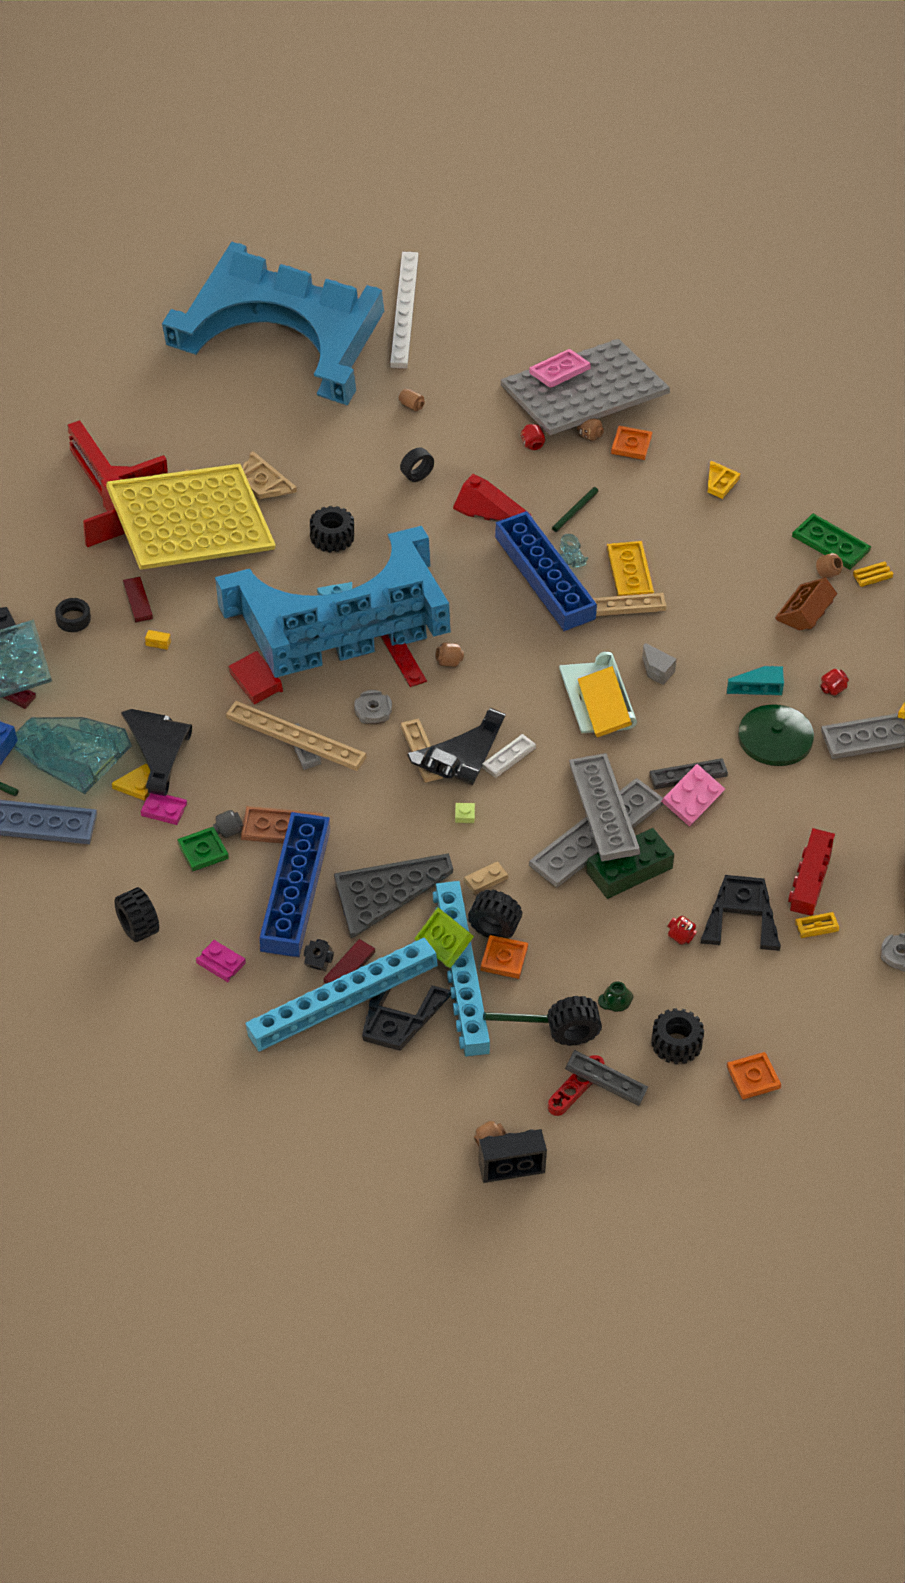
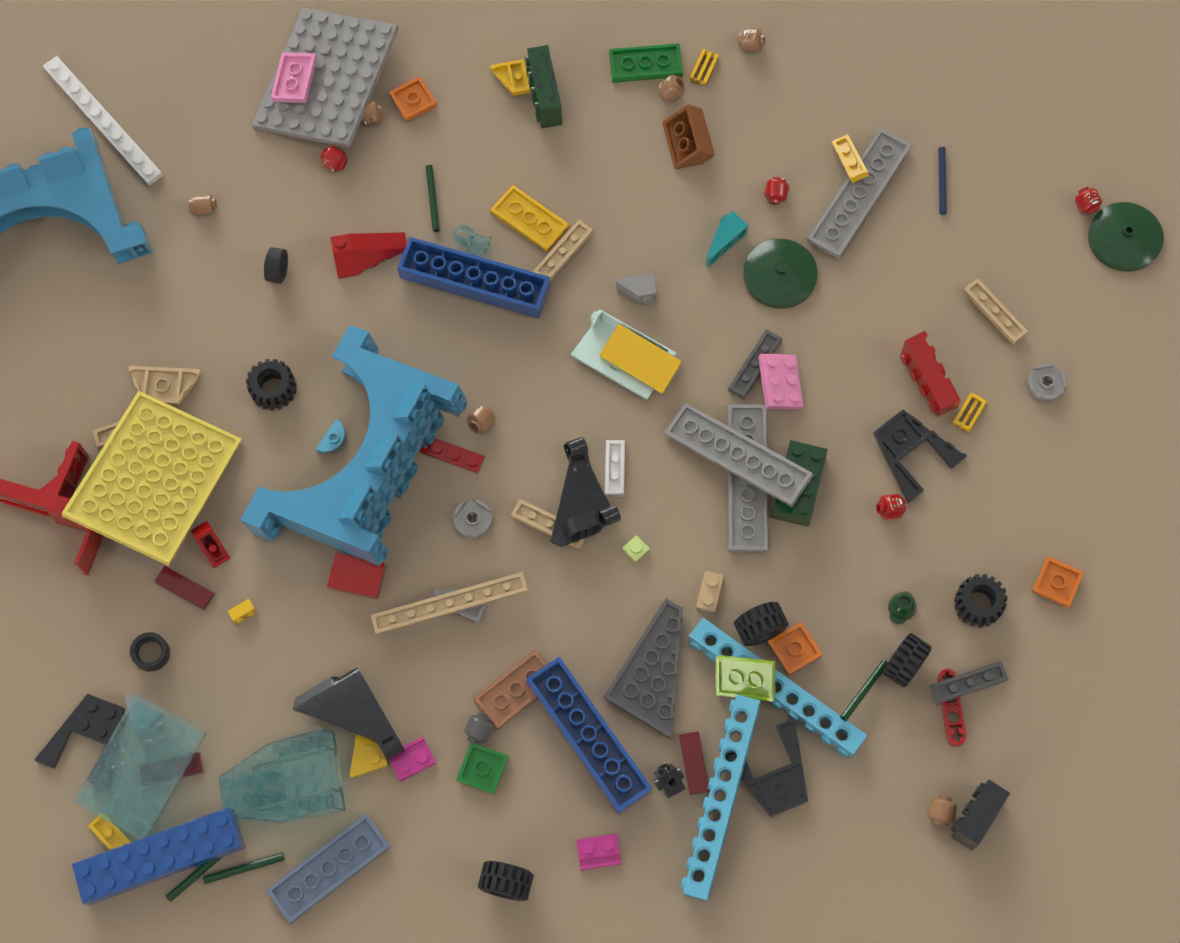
camera: 40 degrees left, 20 degrees up
(183, 586) = (210, 544): none -> red slope
(733, 497) = (543, 86): none -> dark green brick

